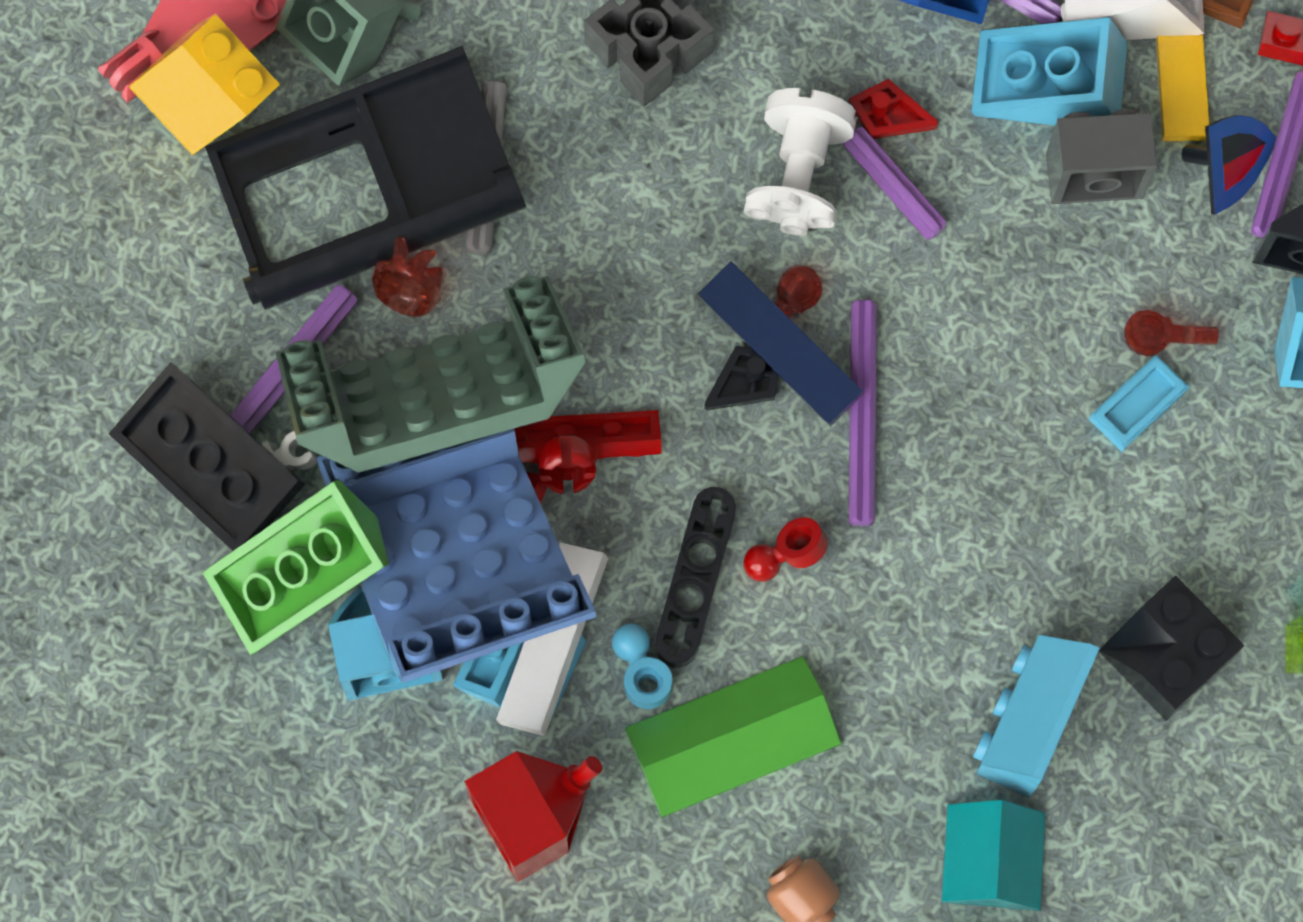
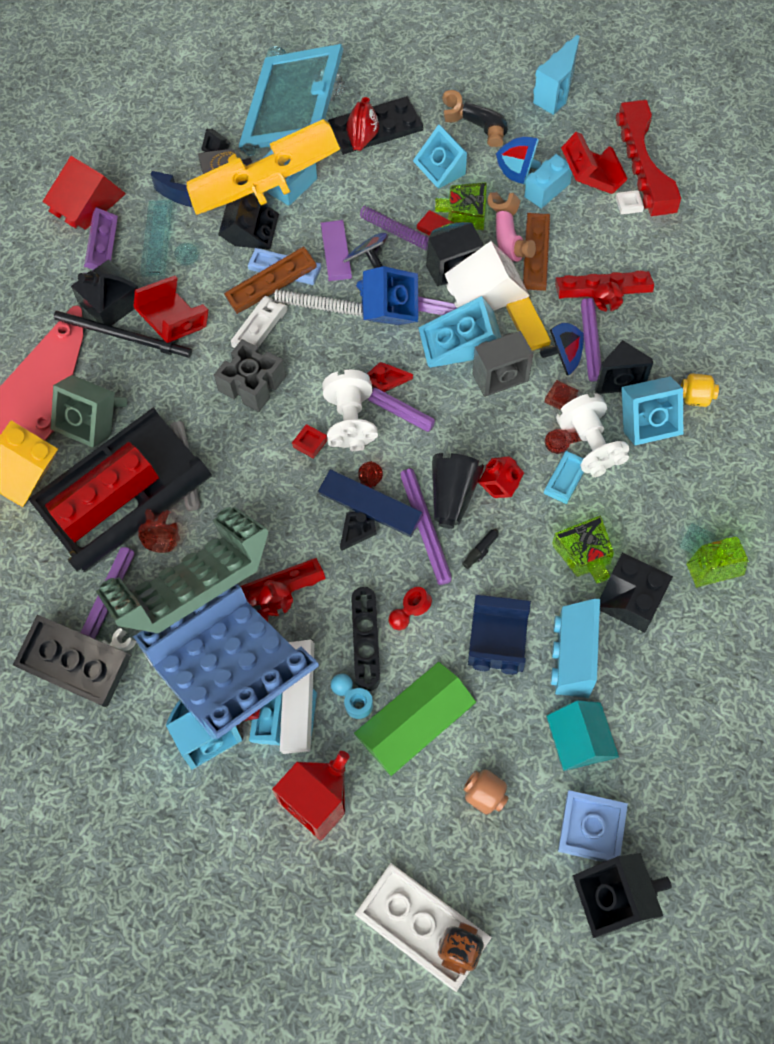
camera: 15 degrees left, 10 degrees down
(298, 565) = (139, 699): bright green slope -> none
(331, 176) = (102, 491): none -> red slope
(714, 192) = (309, 441): none -> red plate
(918, 644) = (498, 634): none -> dark blue panel
(932, 363) = (453, 486): none -> black cone
(943, 486) = (481, 549): none -> piece
(1023, 369) = (501, 477): none -> red brick
(1121, 545) = (586, 548): none -> clear neon green torso
(1193, 252) = (560, 395): none -> clear red plate
(1207, 309) = (584, 416): none -> white piece

